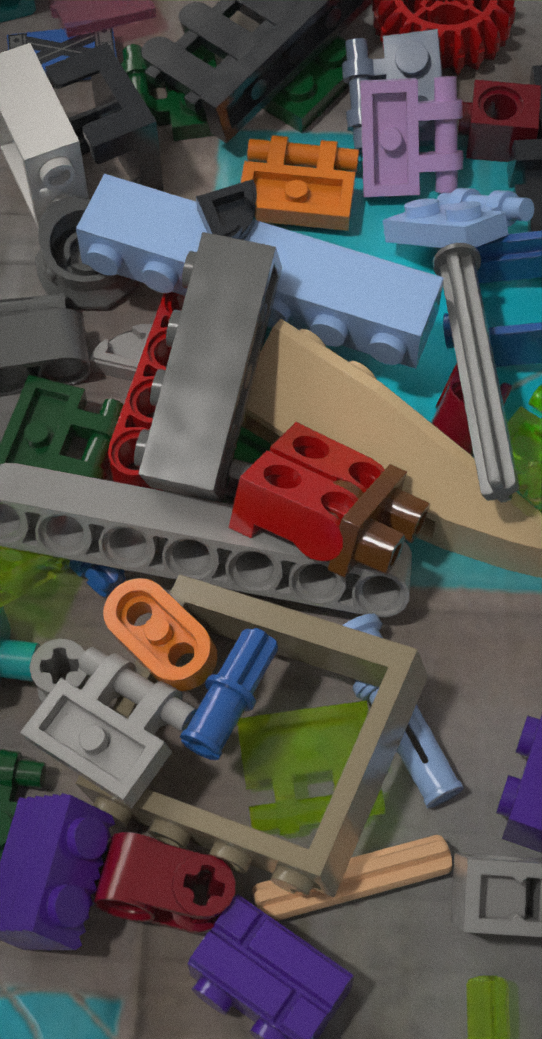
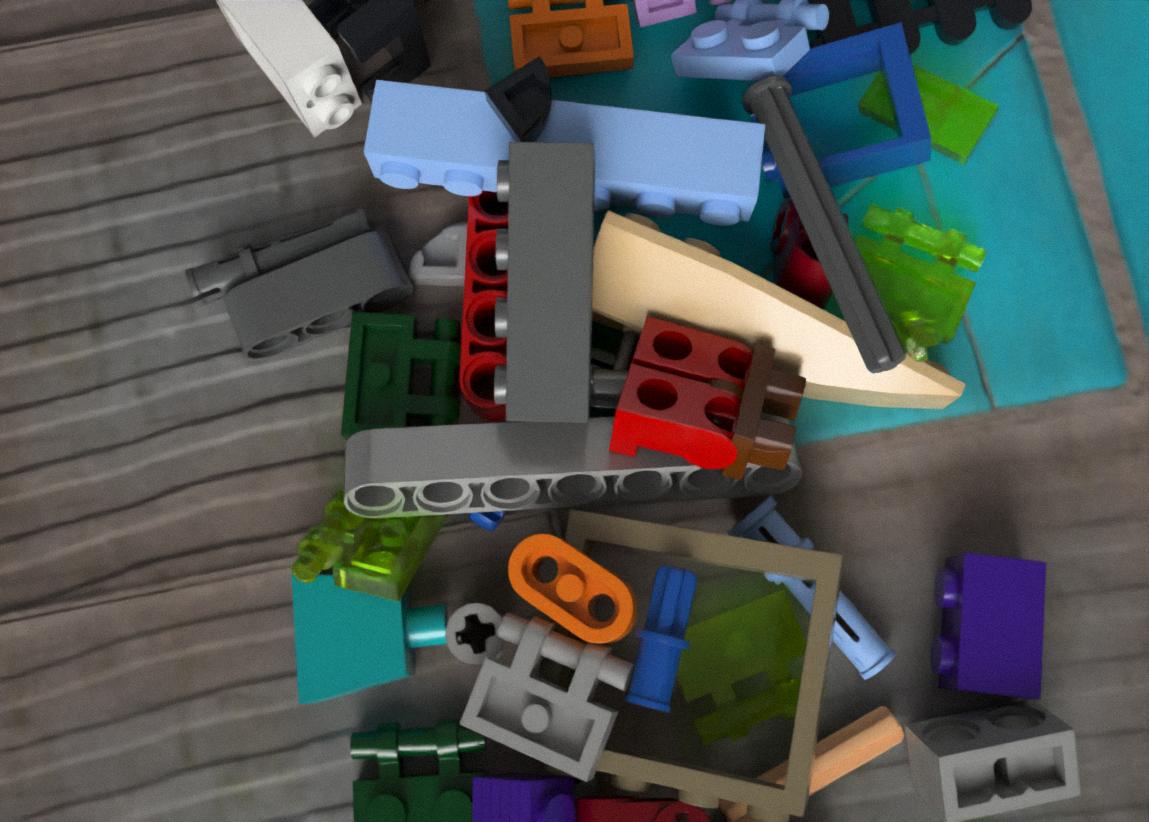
camera: 10 degrees left, 15 degrees up
(61, 265) = (346, 169): dark grey hat -> none

